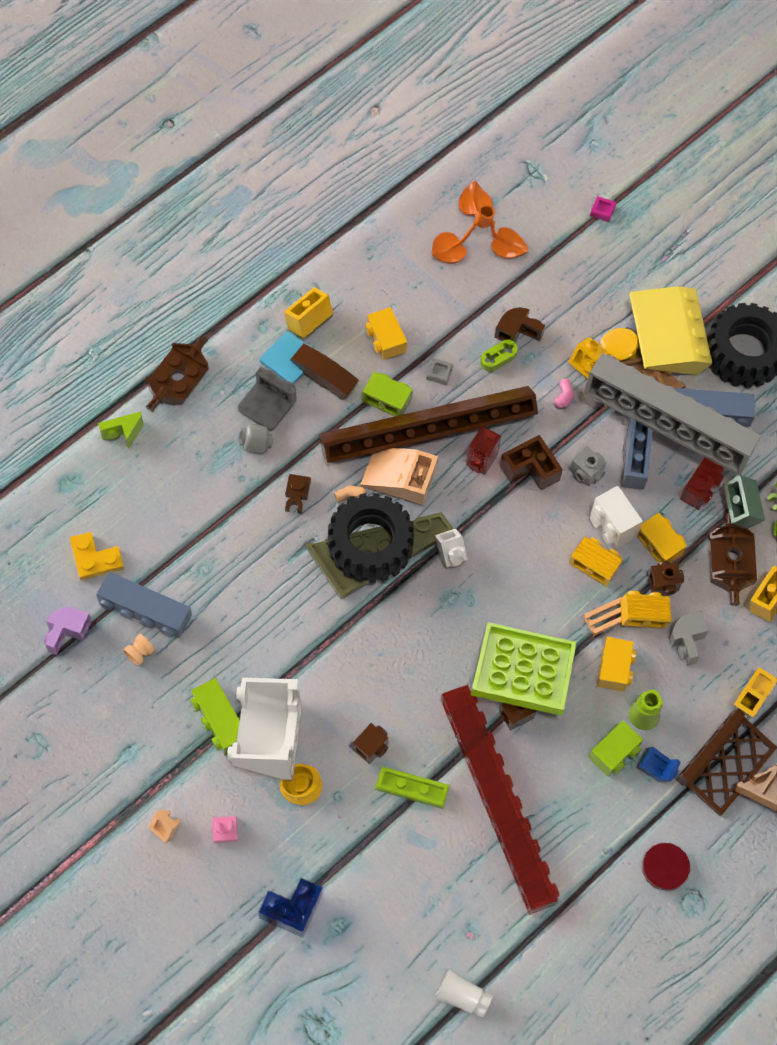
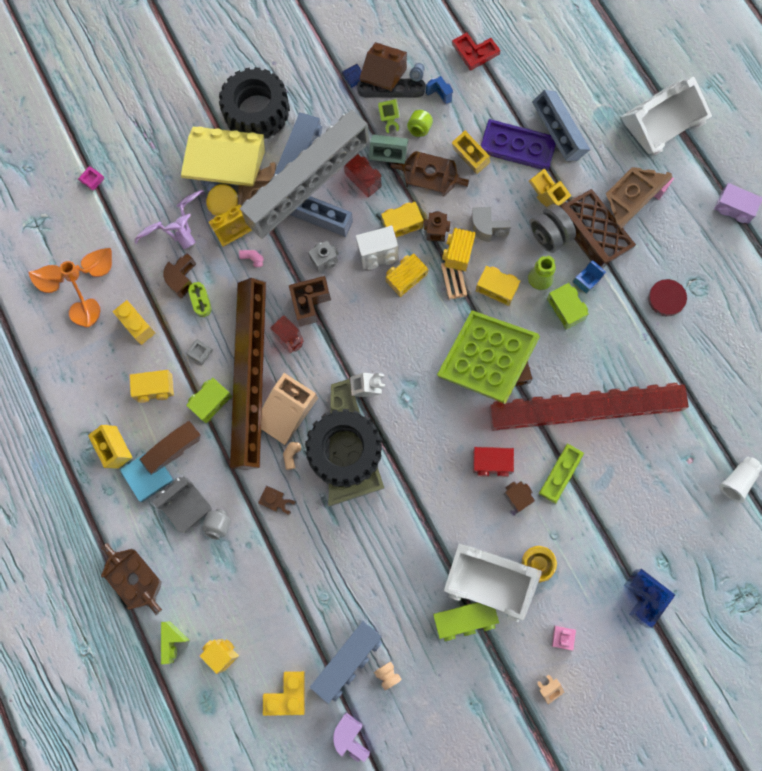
camera: 65 degrees left, 10 degrees up
(120, 475) = (219, 654): none -> yellow brick
(404, 706) = (493, 461): none -> red brick
(451, 297) = (134, 322): none -> yellow brick
(564, 315) = (182, 235): none -> lavender plant
(701, 703) = (552, 228): none -> flat silver wheel

